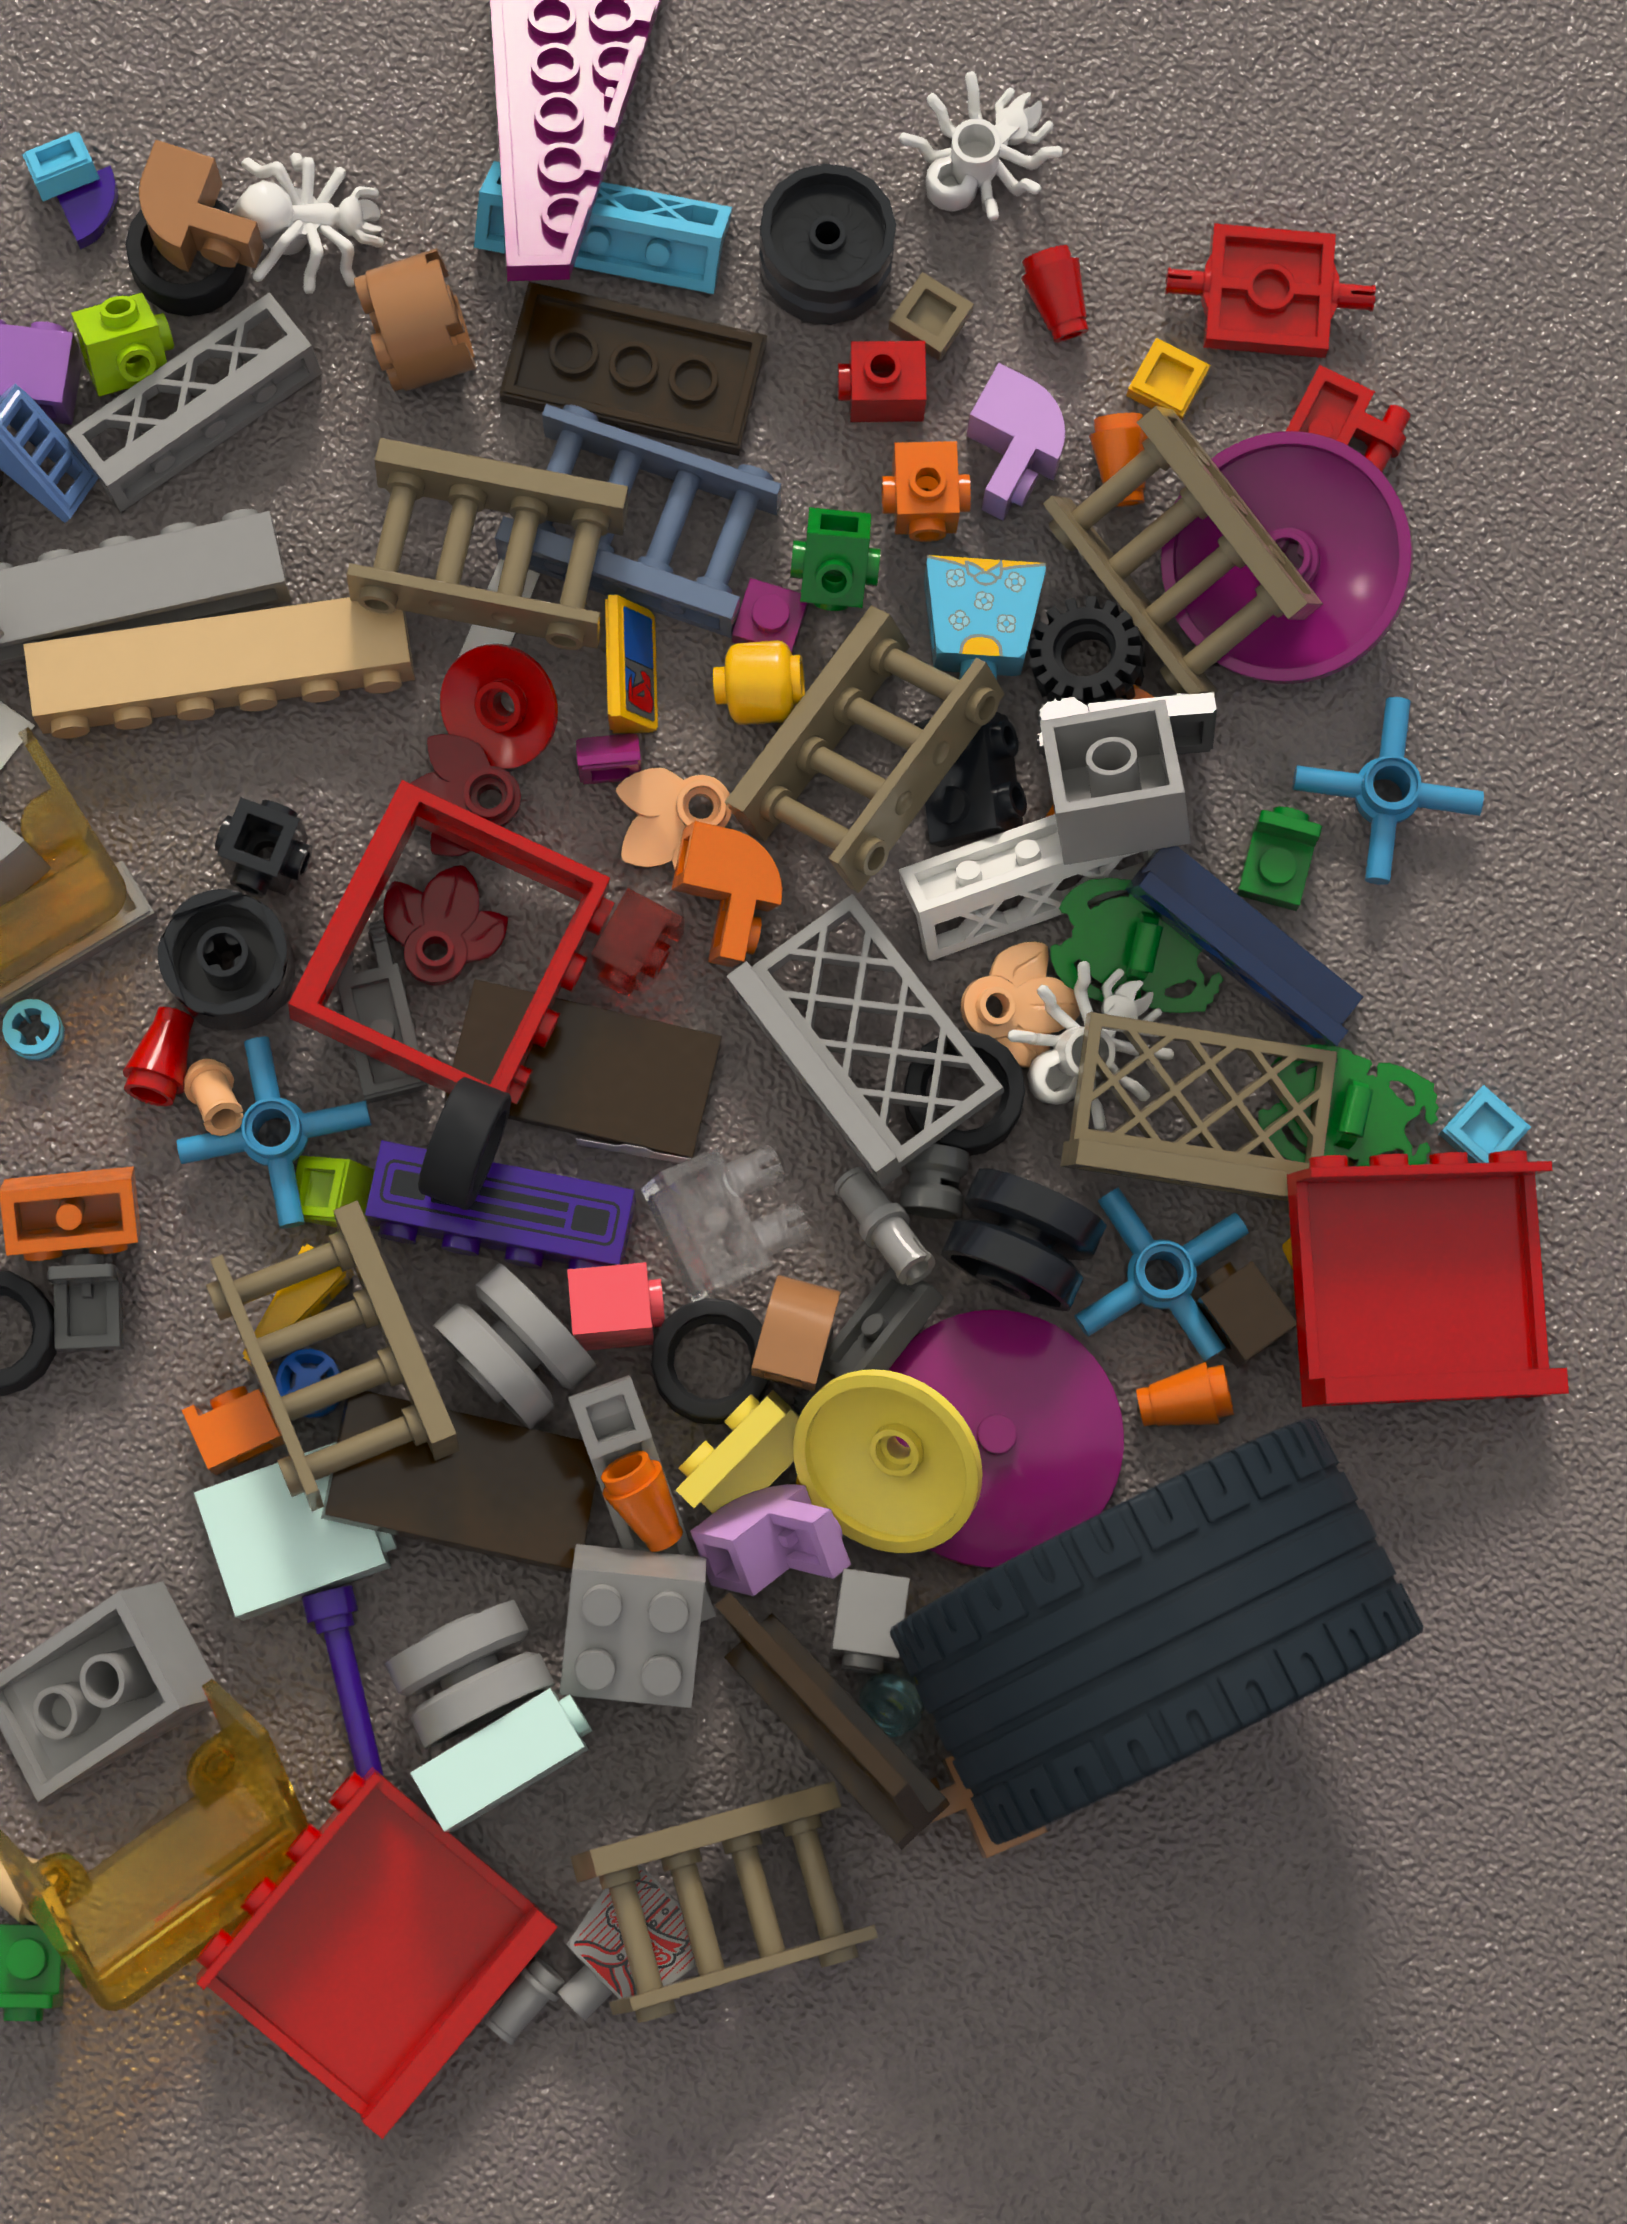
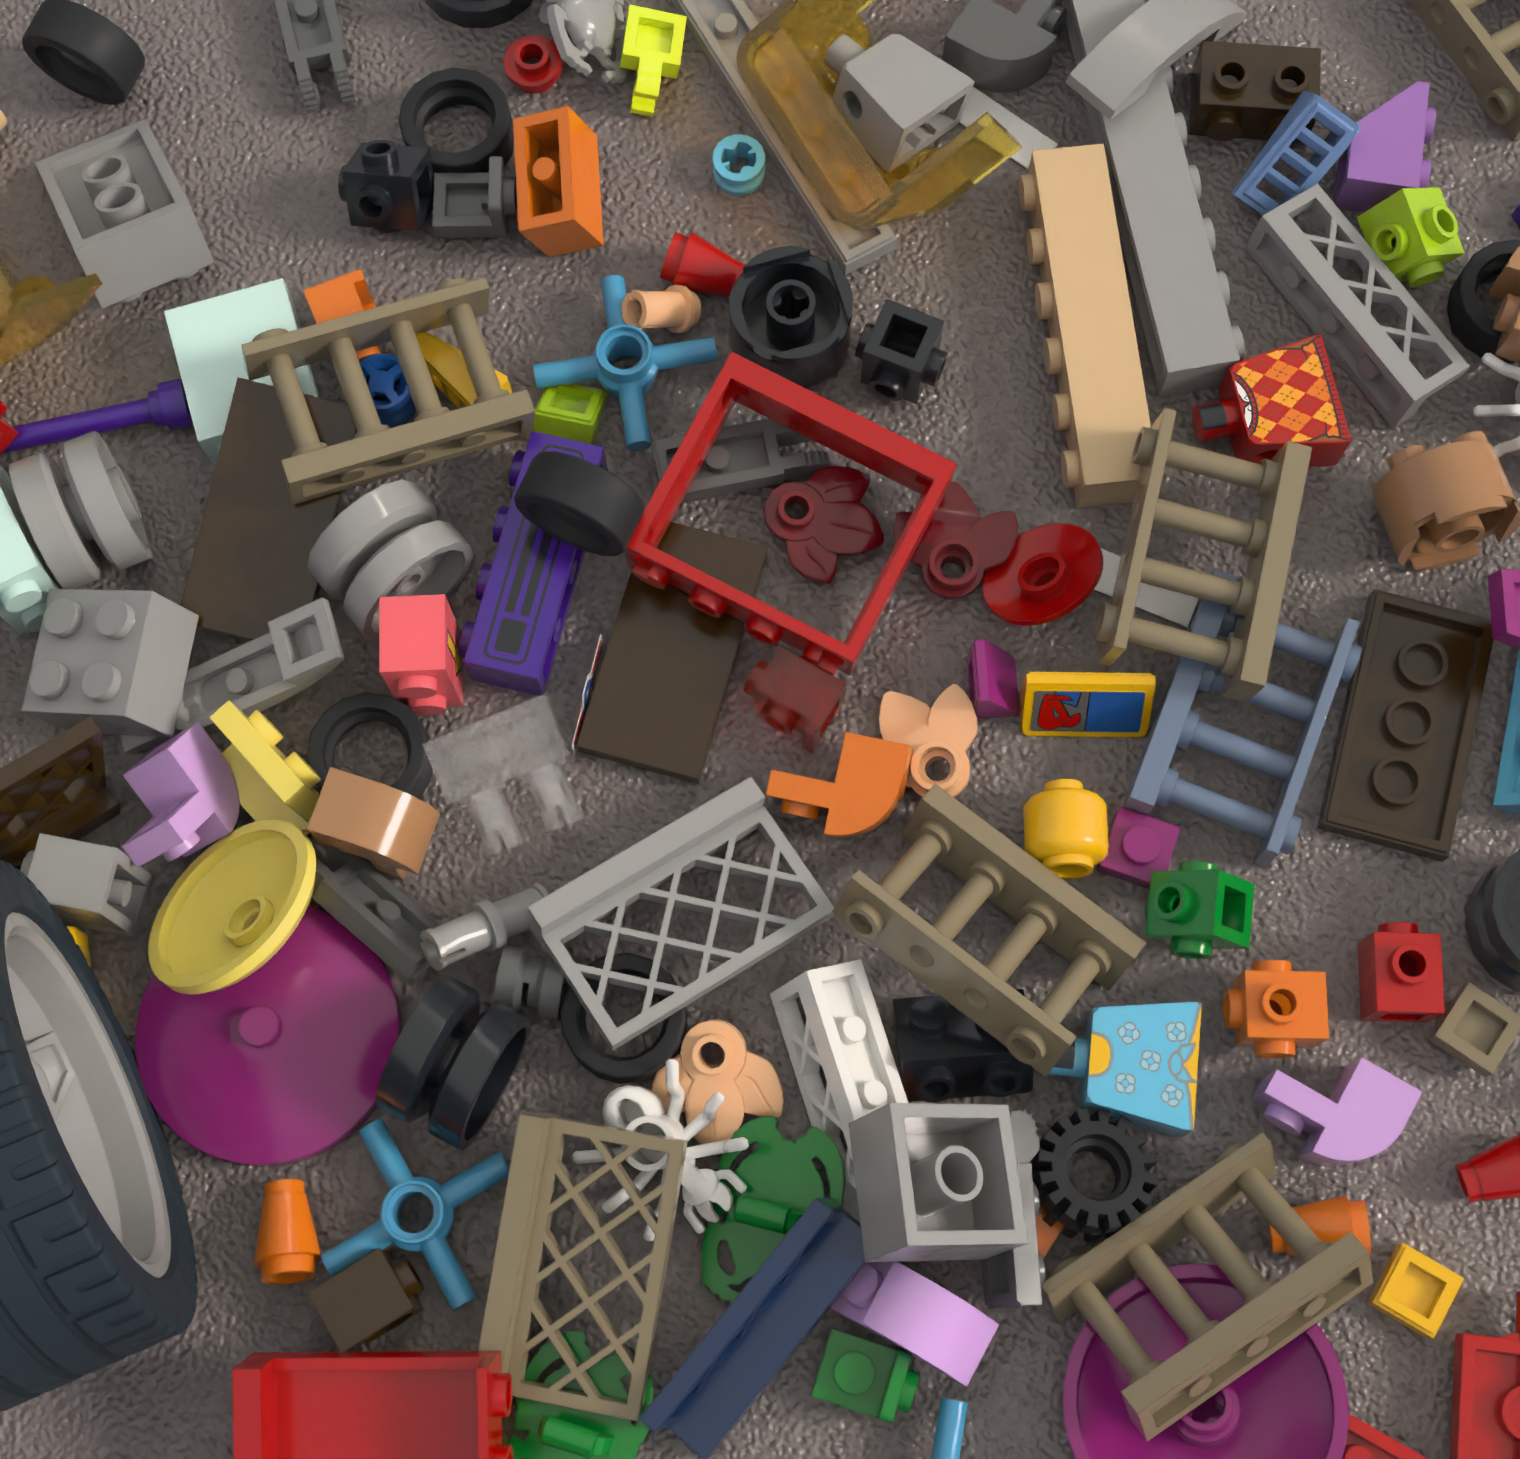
camera: 100 degrees right, 5 degrees down
(75, 1395) = (388, 186): none -> black brick
(312, 478) = (1278, 400): none -> torso
(642, 1498) = (232, 672): orange cone -> none
(1228, 806) = (918, 1318): none -> lavender brick

